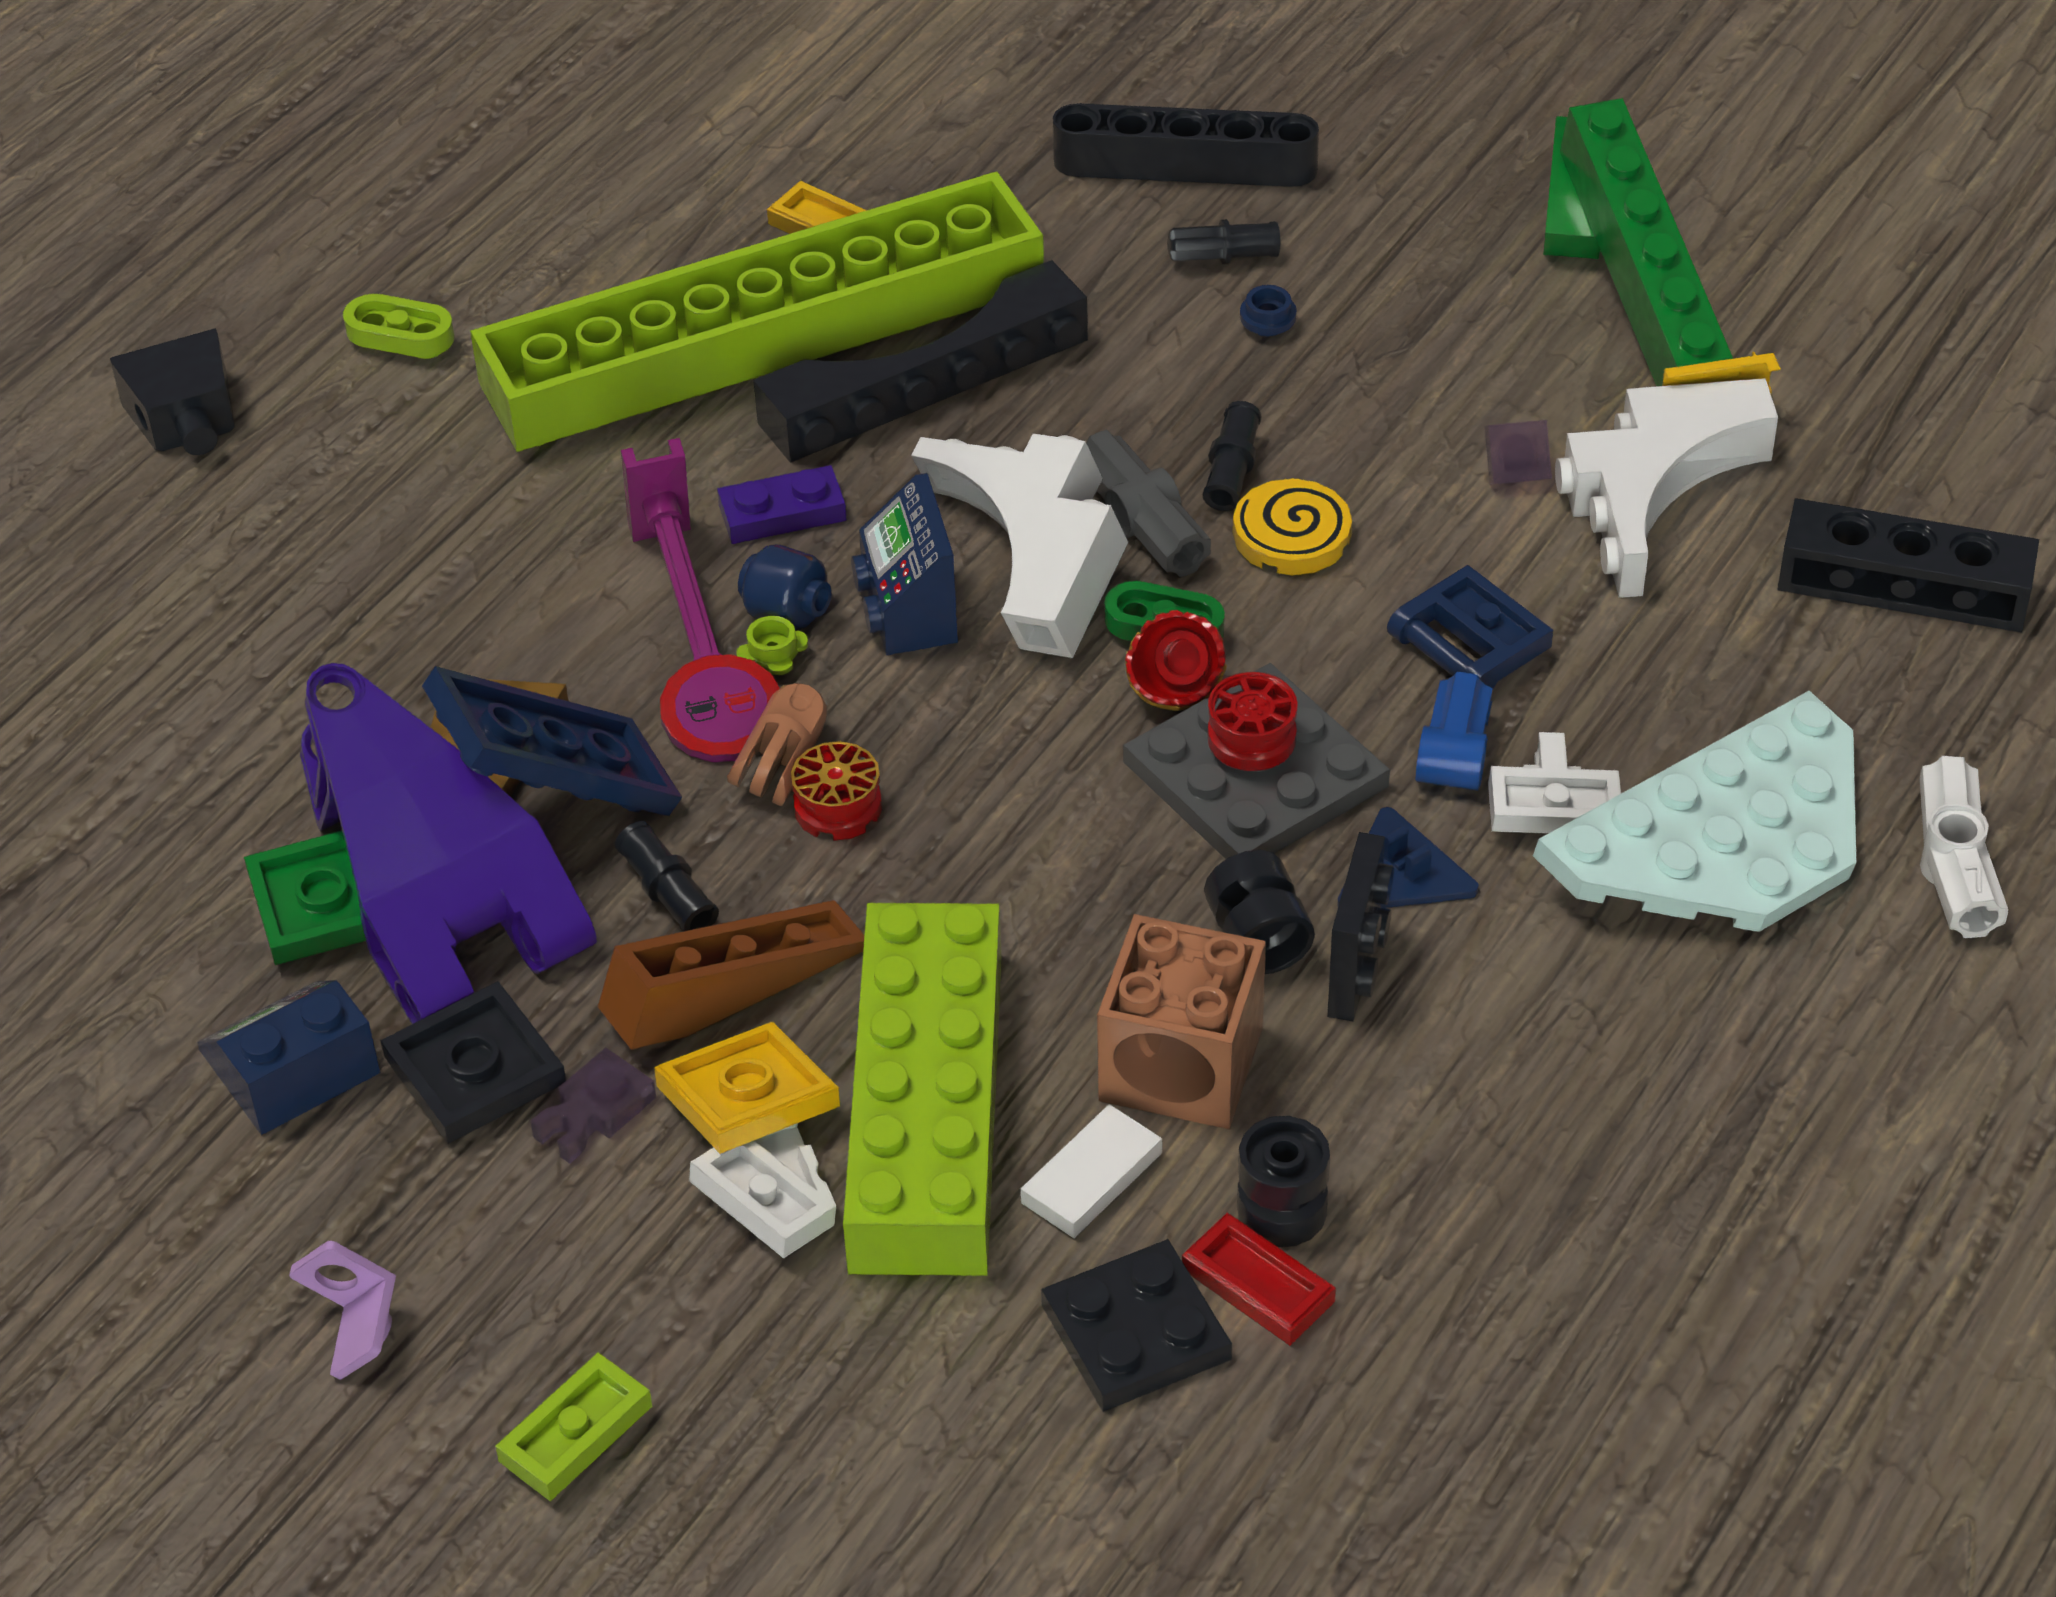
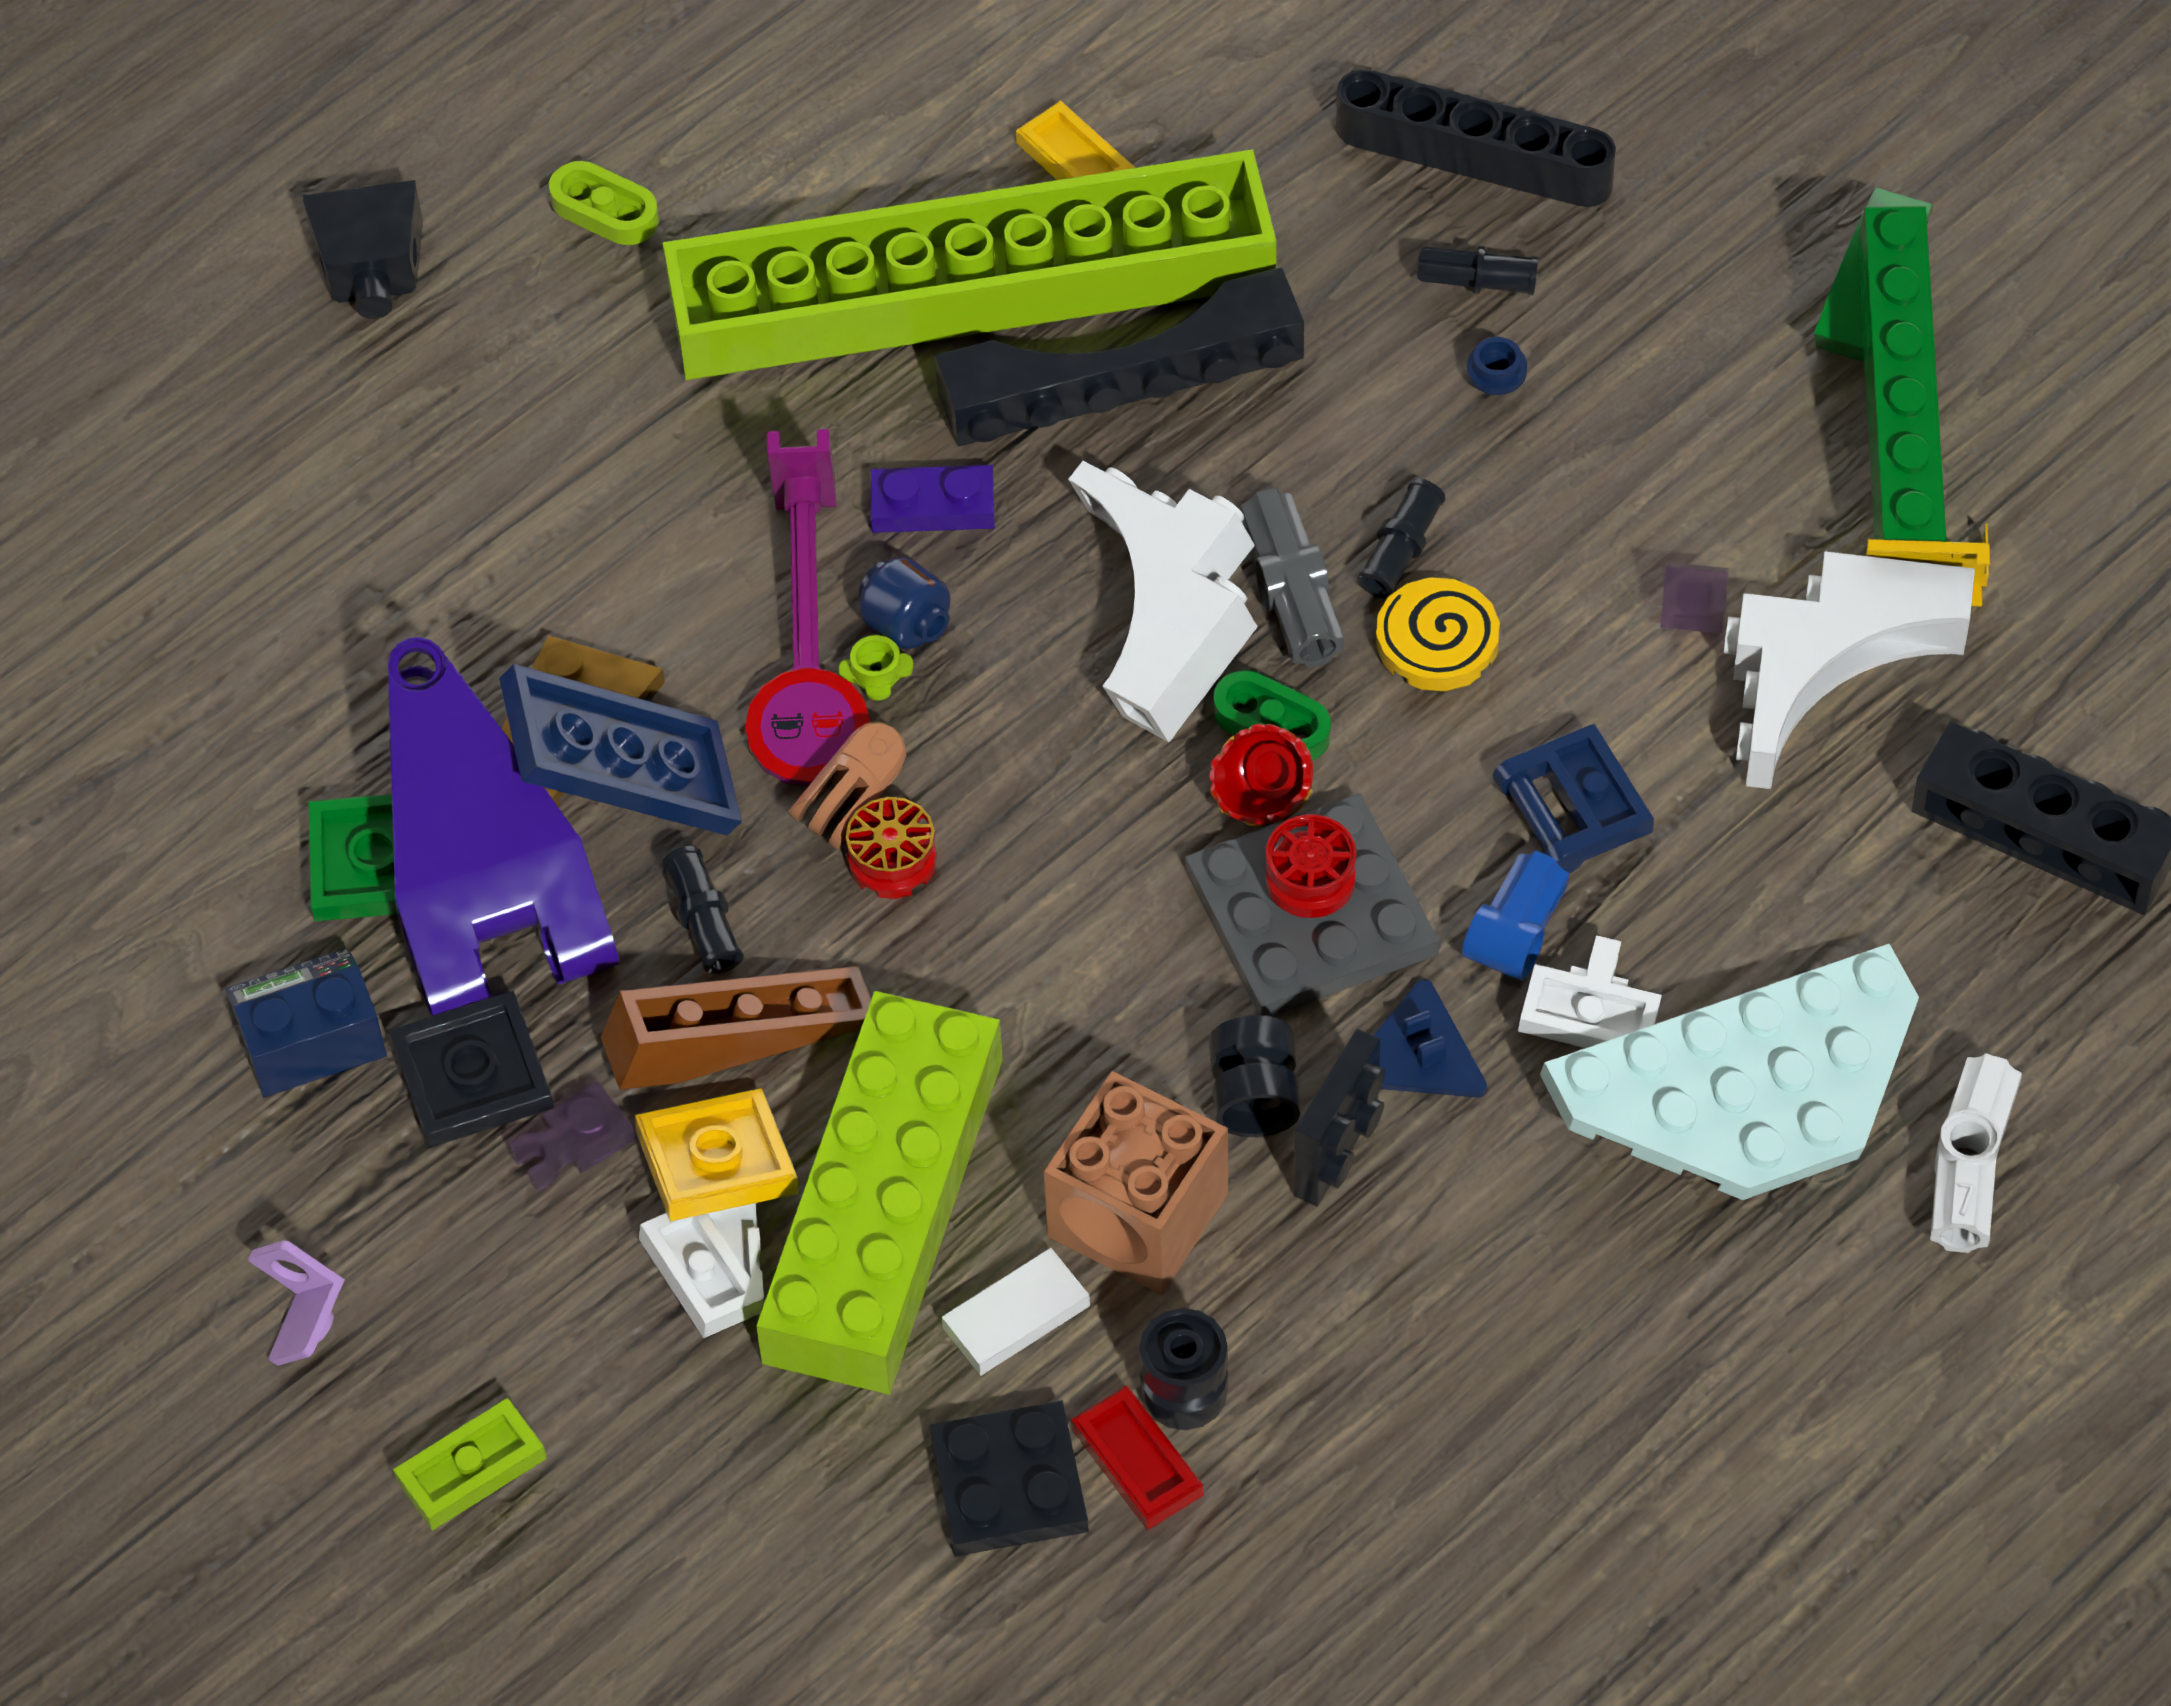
camera: 15 degrees right, 10 degrees up
(908, 572) = (1025, 617): dark blue slope -> none

